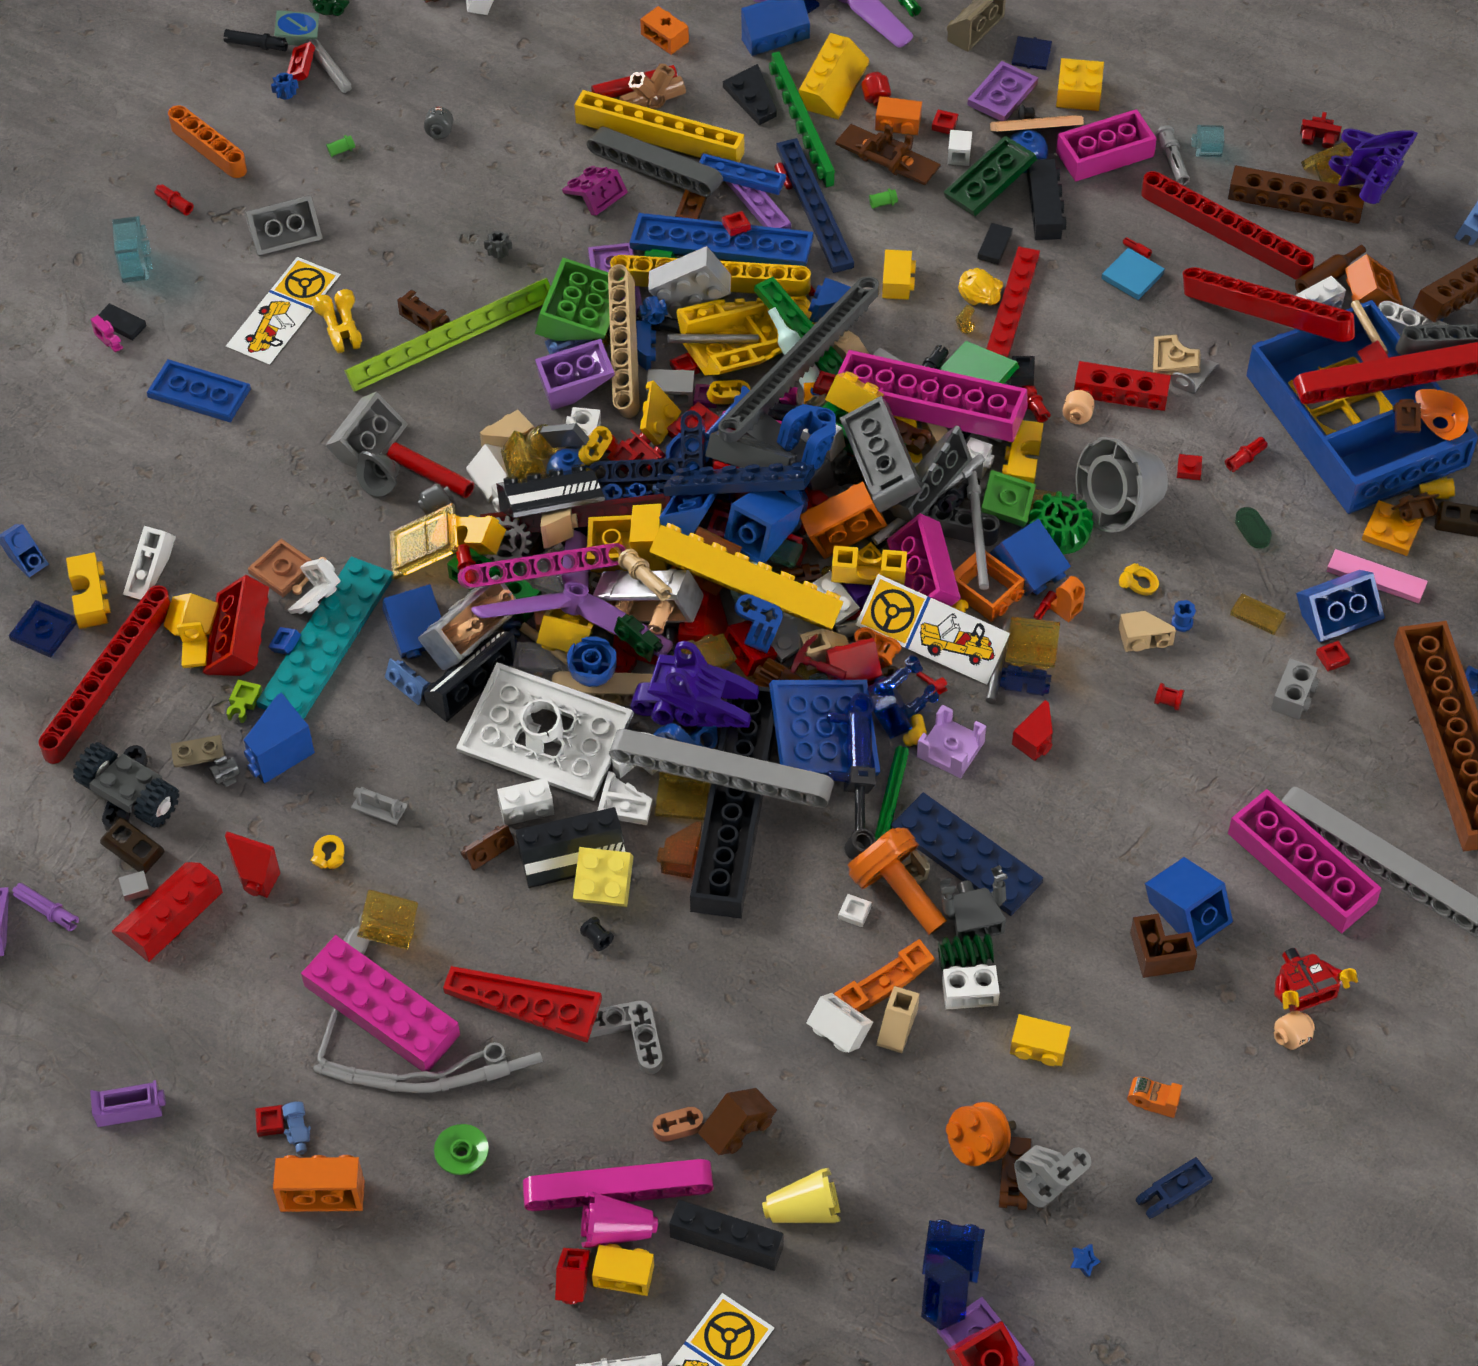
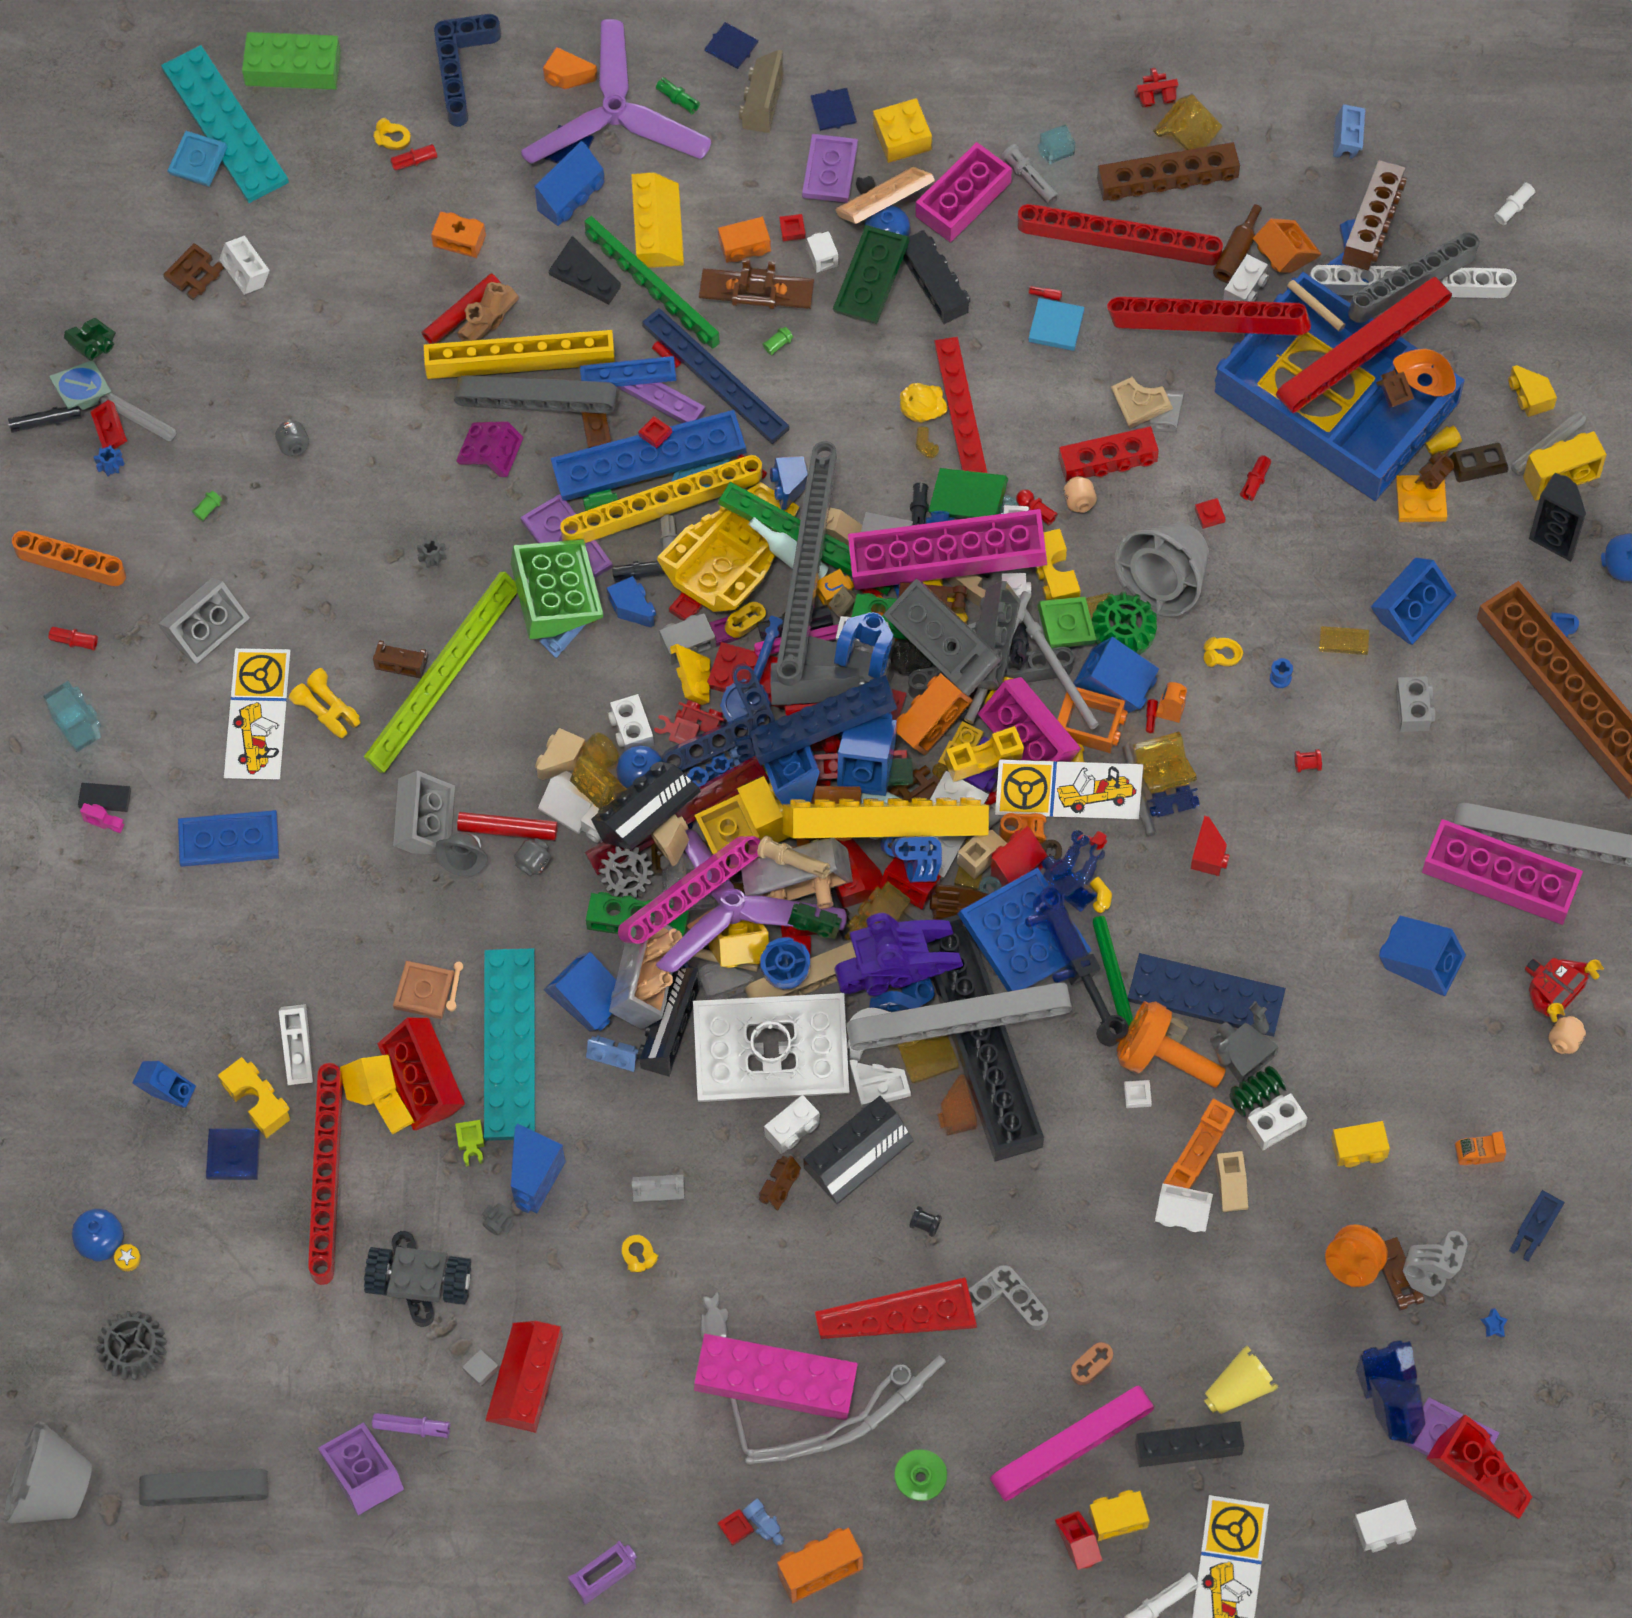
camera: 25 degrees left, 10 degrees up
(124, 850) = (454, 1338): dark brown piece -> none
(197, 751) = (464, 1214): dark tan bracket -> none
(254, 864) = (581, 1299): red slope -> none
(284, 640) = (474, 1064): blue plate -> none
(322, 576) = (479, 1000): white bracket -> none
(388, 919) = (733, 1294): clear yellow bracket -> none
(423, 541) = (549, 906): clear yellow piece -> none
(465, 559) = (606, 913): red axle -> none
(480, 533) = (573, 883): yellow arch -> none
(564, 435) = (625, 739): dark grey tile -> none
(574, 373) = (591, 665): medium lavender slope -> none
(599, 448) = (661, 735): yellow beam -> none
(603, 877) = (905, 1166): light yellow brick -> none
(614, 1221) = (1088, 1478): dark pink cone -> none
(619, 332) = (614, 603): tan beam -> none
(653, 310) = (631, 565): blue gear -> none
(690, 280) = (652, 521): light grey brick -> none
(713, 338) = (702, 570): flat silver bar -> none
(735, 1118) = (1145, 1335): reddish brown brick -> none
(821, 666) = (971, 873): dark red piece -> none
(823, 383) = (839, 574): red tile -> none
(851, 393) = (881, 582): yellow brick -> none
(875, 86) = (706, 217): red head -> none
(897, 274) = (837, 421): yellow brick -> none
(951, 744) = (1139, 894): lavender panel -> none
(995, 243) = (909, 345): black tile -> none
(1025, 373) = (1016, 482): black tile -> none
(1144, 631) = (1253, 704): tan slope -> none
(1161, 953) = (1420, 1016): reddish brown brick -> none
(1253, 527) = (1297, 552): clear green tile -> none
(1333, 656) = (1429, 654): red tile -> none
(1372, 352) = (1334, 334): red tile -> none
(1373, 161) = (1231, 114): dark purple piece -> none
(1386, 578) = (1443, 553): bright pink tile -> none

